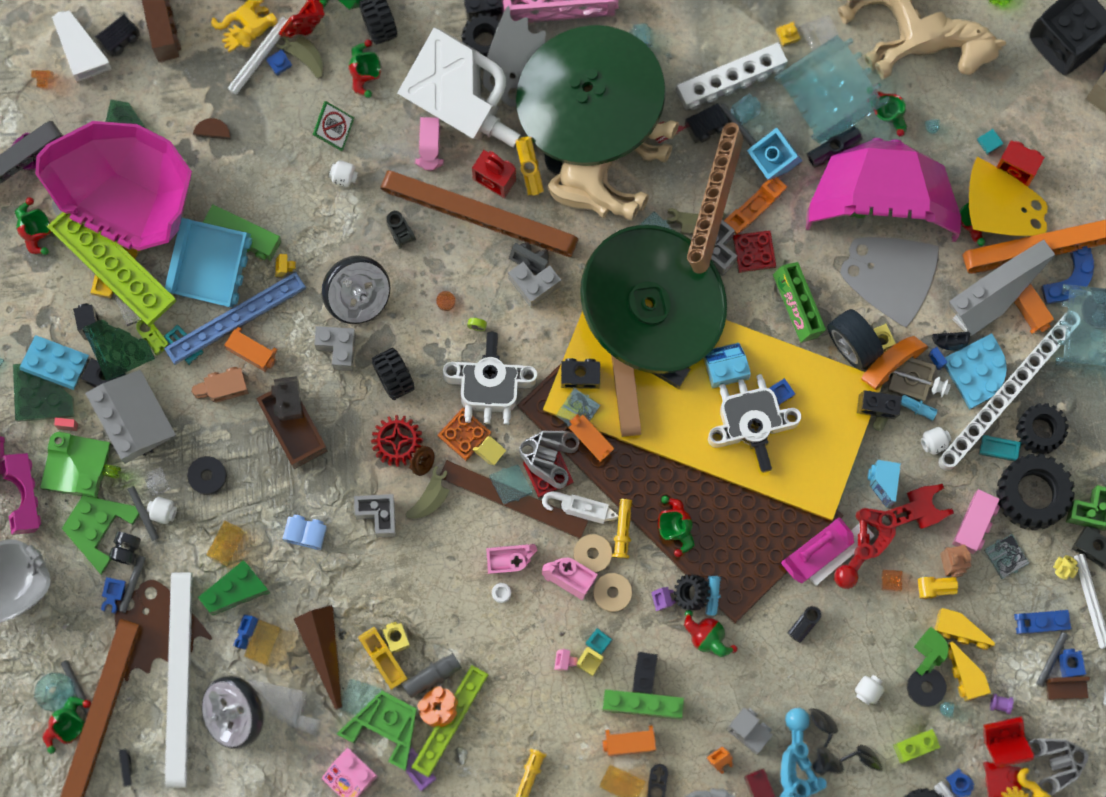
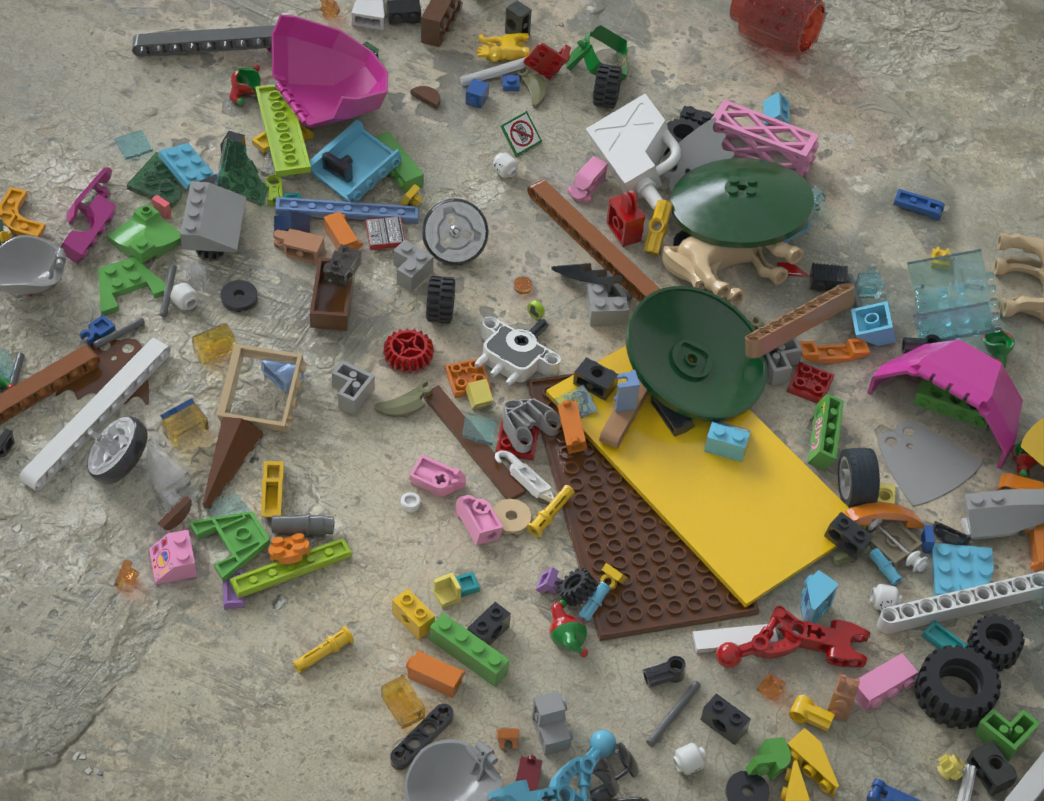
camera: 30 degrees right, 25 degrees down
(111, 471) = (168, 253): clear neon green bush -> none
(121, 554) = (131, 305): black wheel -> none
(197, 276) = (339, 167): none -> black tile
(197, 367) = (292, 220): none -> dark blue slope
(233, 589) = (192, 375): green wedge -> none
(258, 99) = (477, 93): none -> blue brick
(287, 322) = (384, 232): none -> tile
(322, 736) = (176, 514): none -> reddish brown tile
(333, 547) = (238, 354): none -> tan window
(363, 67) = (573, 112): green piece -> none
(397, 646) = (295, 482): light yellow brick -> none
(401, 232) = (521, 219): pearl dark grey piece -> none
(426, 462) = (424, 365): reddish brown gear -> none
(497, 261) = (584, 273): none -> black slope
(564, 660) = (425, 578): bright pink tile -> none
(578, 701) = (412, 614): none -> yellow brick
(616, 581) = (507, 544): tan tile -> none
(626, 384) = (627, 392): none -> medium blue hinge
(676, 525) = (600, 528): green piece -> none
(713, 560) = (612, 574): none -> yellow tile
(749, 408) = (723, 487): piece -> none
(771, 54) = (861, 256): white brick -> none
(782, 391) = (764, 482): blue plate -> none
(819, 551) = (717, 622): dark pink piece -> none
(831, 654) = (673, 713): none -> dark grey bar
(876, 636) = (725, 719): none -> black brick
(933, 125) = (1030, 375): clear light blue hinge -> none
(1006, 556) = (897, 730): piece -> none

